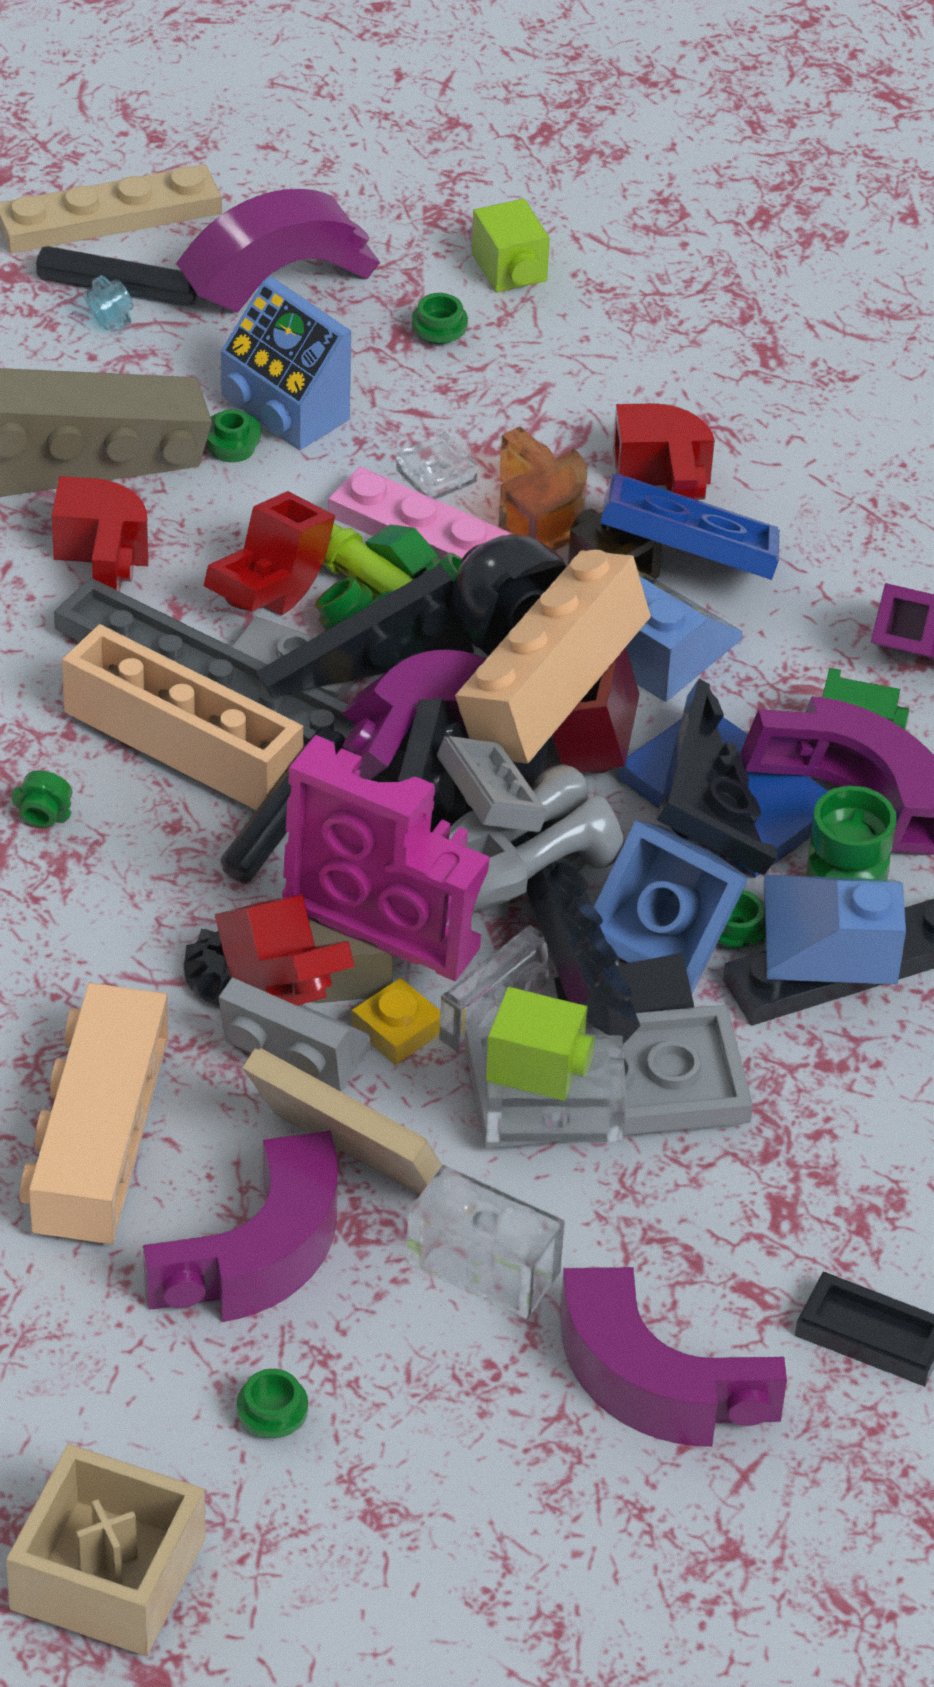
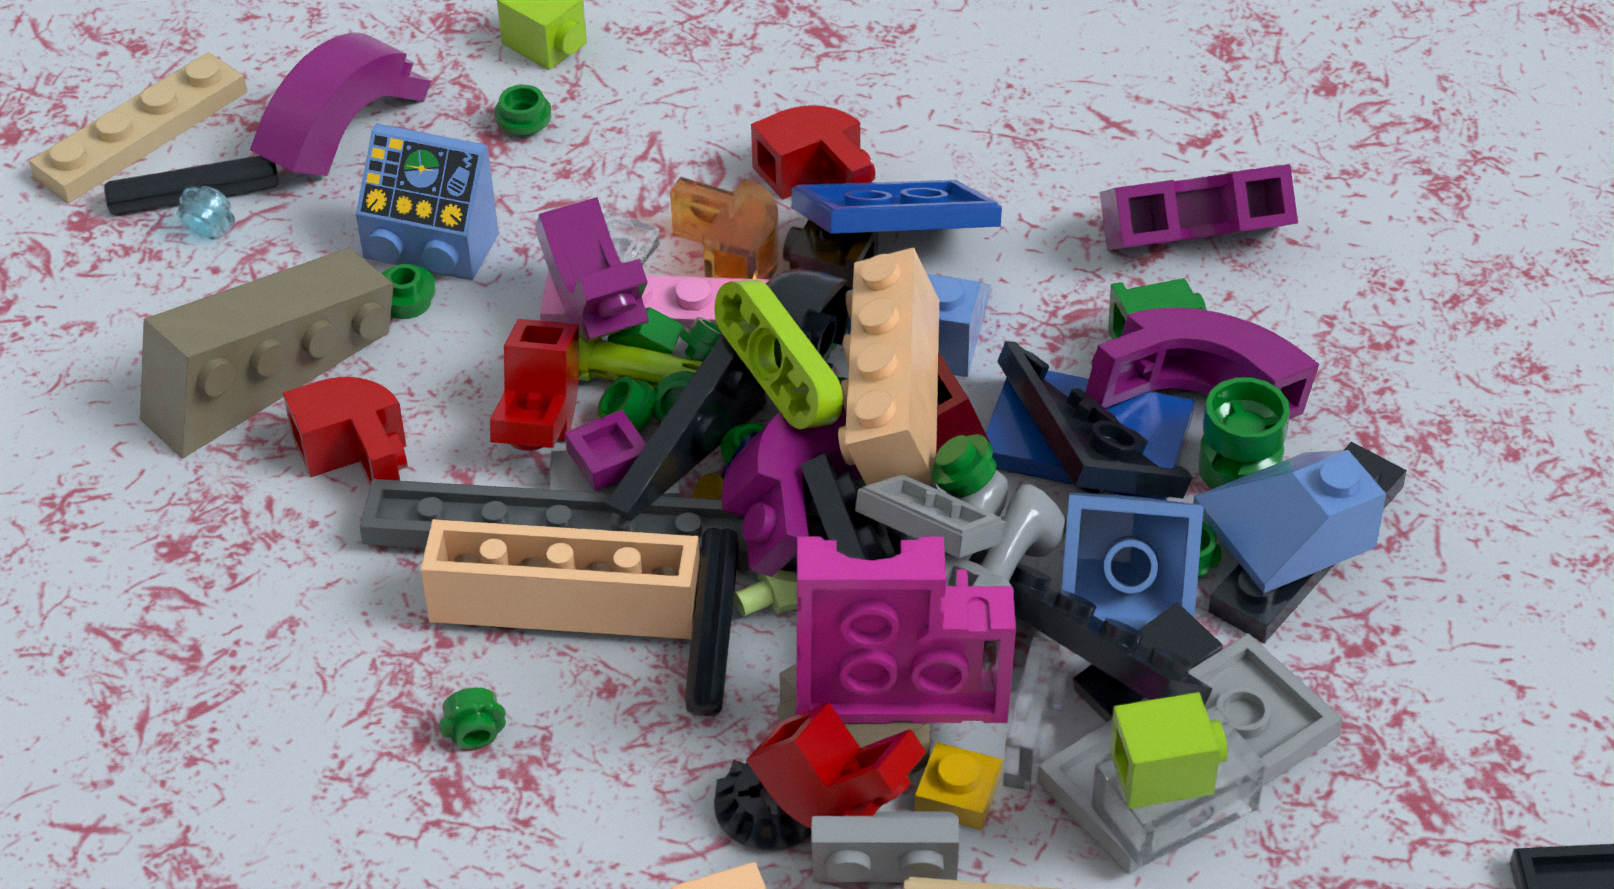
camera: 25 degrees left, 0 degrees up
(290, 626) = (605, 449): none -> magenta tile
(375, 484) = (588, 272): none -> magenta arch
(458, 599) = (804, 384): none -> lime beam
(554, 756) = (964, 465): none -> green plate

